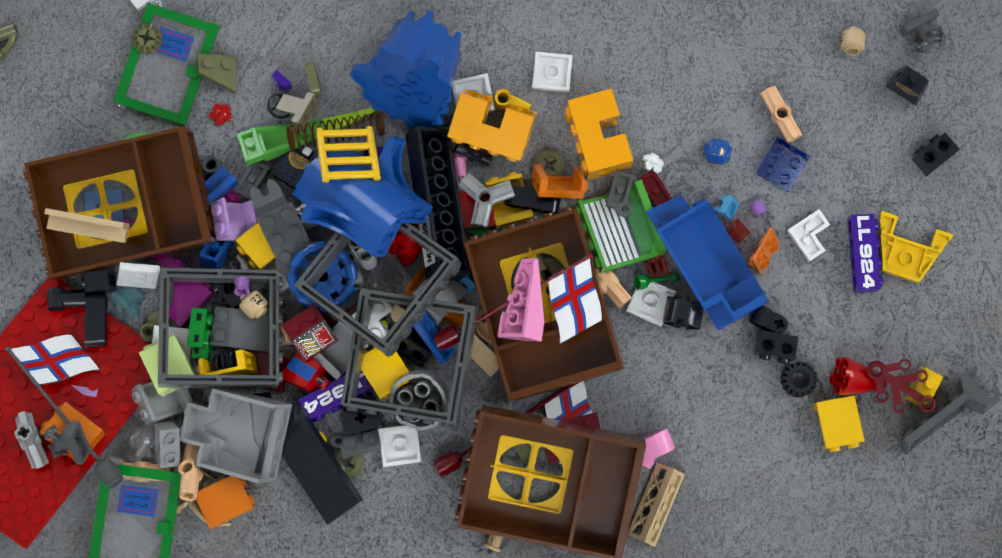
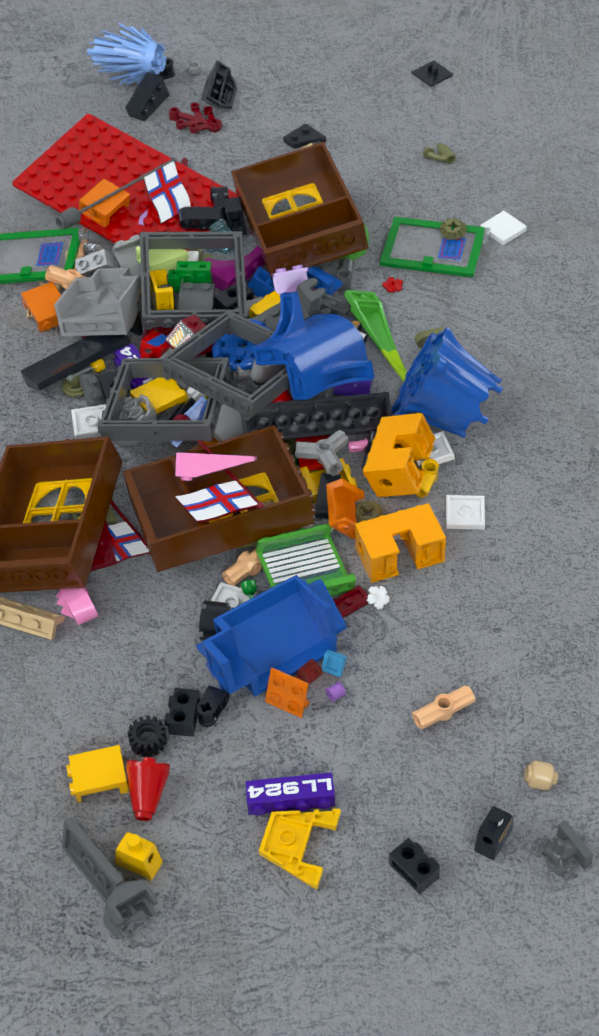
camera: 90 degrees right, 30 degrees down
(30, 439) = (98, 171): light grey piece -> none
(70, 439) = (92, 186): dark grey piece -> none
(87, 225) = (274, 179): tan fence -> none
(138, 275) = (238, 223): white tile -> none
(219, 69) = (432, 277): olive wing -> none
(241, 286) = (230, 290): medium lavender axle -> none
(254, 305) = (216, 302): tan head -> none
(281, 82) = (427, 317): dark purple plate -> none
(290, 135) = (393, 376): reddish brown piece -> none
(301, 108) = (399, 327): dark tan piece -> none
(369, 145) = (359, 324): yellow bar -> none
(620, 192) = (340, 565): dark grey hinge -> none
(718, 151) = (394, 650): blue head -> none
(783, 164) = (390, 711): clear blue bracket -> none
(804, 234) = (309, 736): white plate -> none
(898, 383) = (149, 795): dark red plant -> none

